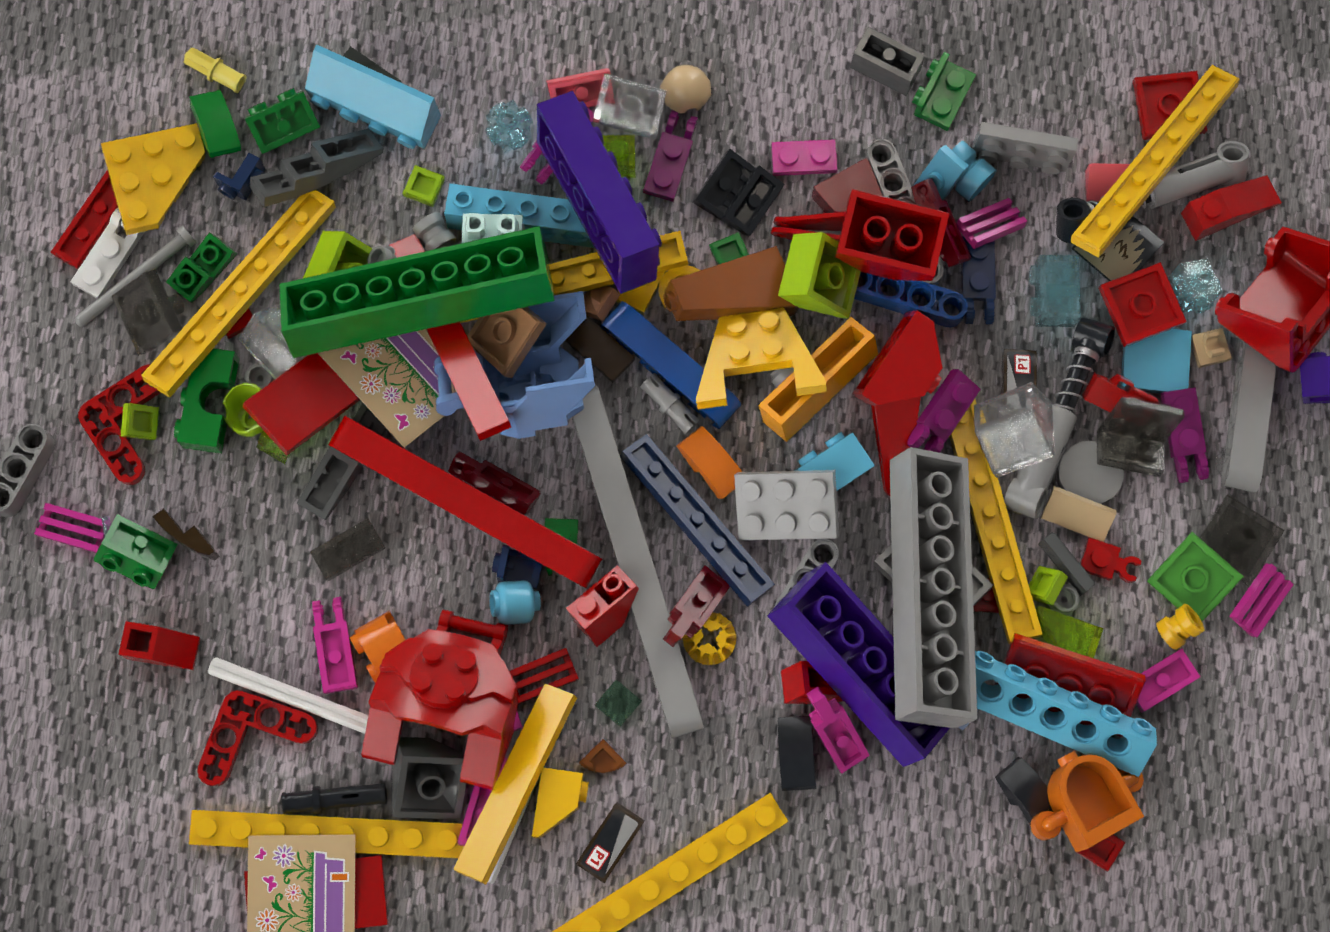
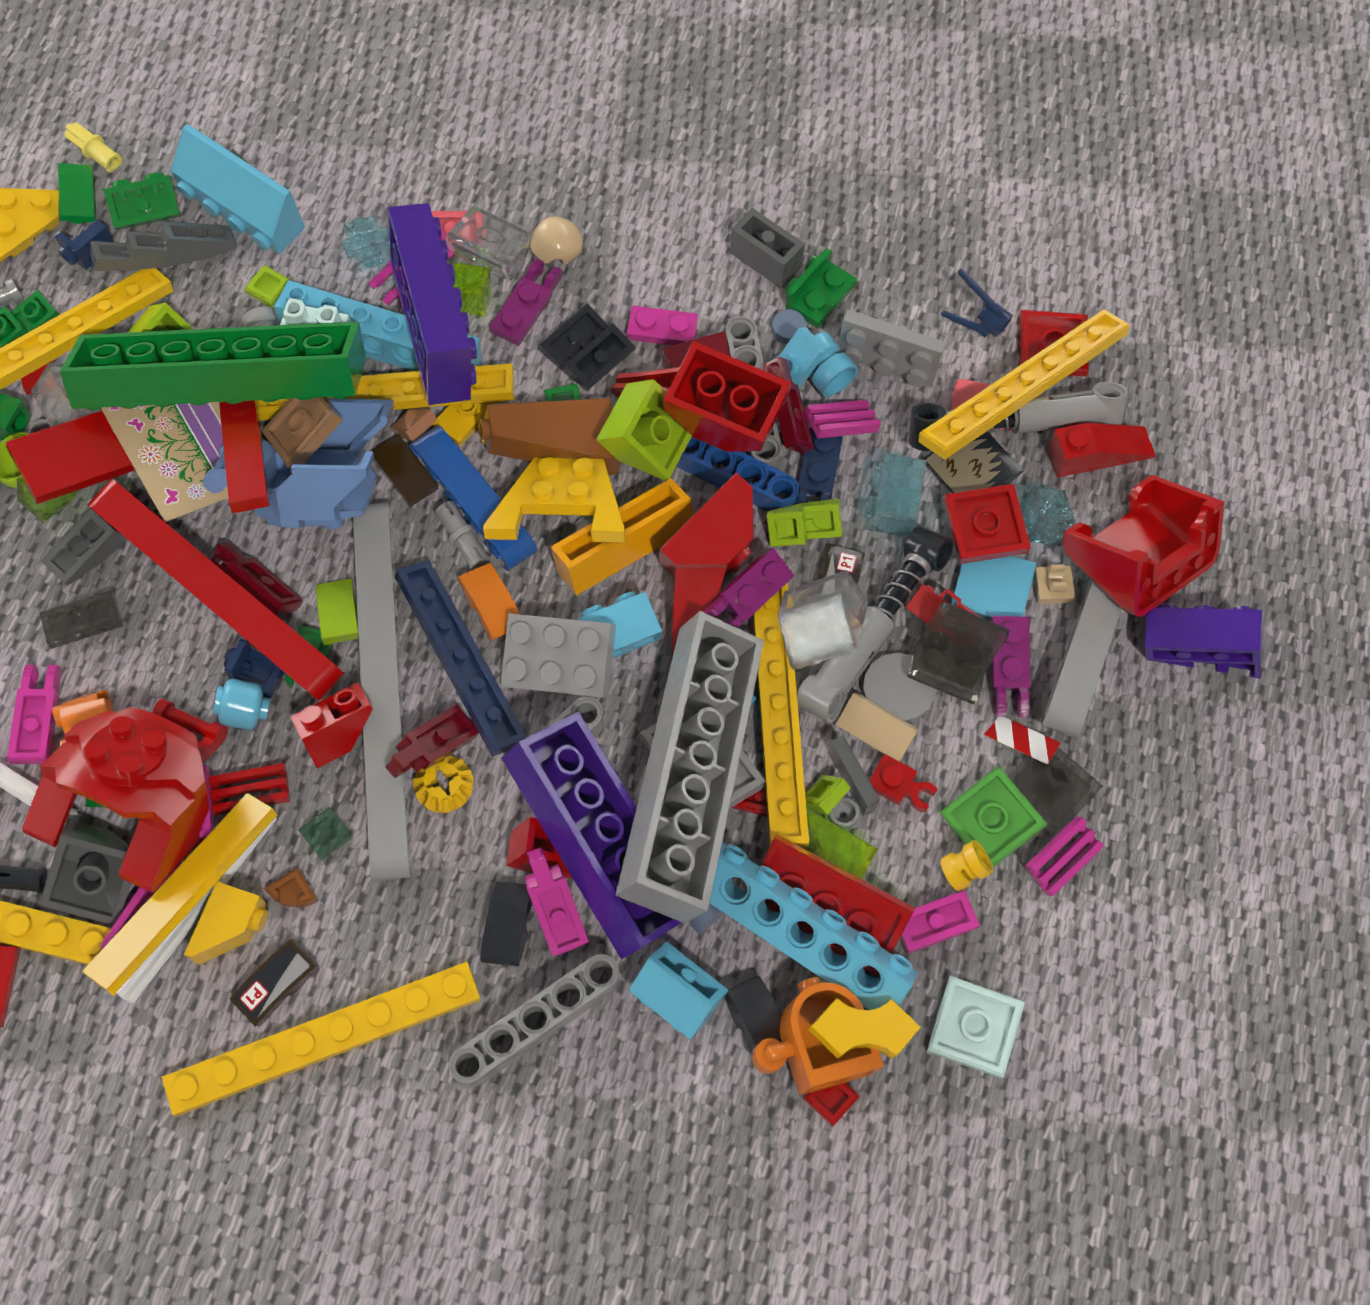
camera: 10 degrees right, 10 degrees down
(576, 497) = (337, 611): none -> lime slope
(856, 824) = (526, 1039): none -> light grey beam
(921, 135) = (786, 324): none -> sand blue tile
(957, 784) = (678, 990): none -> medium azure brick
(980, 329) = (805, 521): none -> lime slope
(1110, 90) = (992, 316): none -> dark blue plant
(1138, 785) = (848, 1028): none -> yellow tile
(1207, 500) = (1023, 739): none -> sticker
(1211, 763) = (975, 1027): none -> light aqua tile

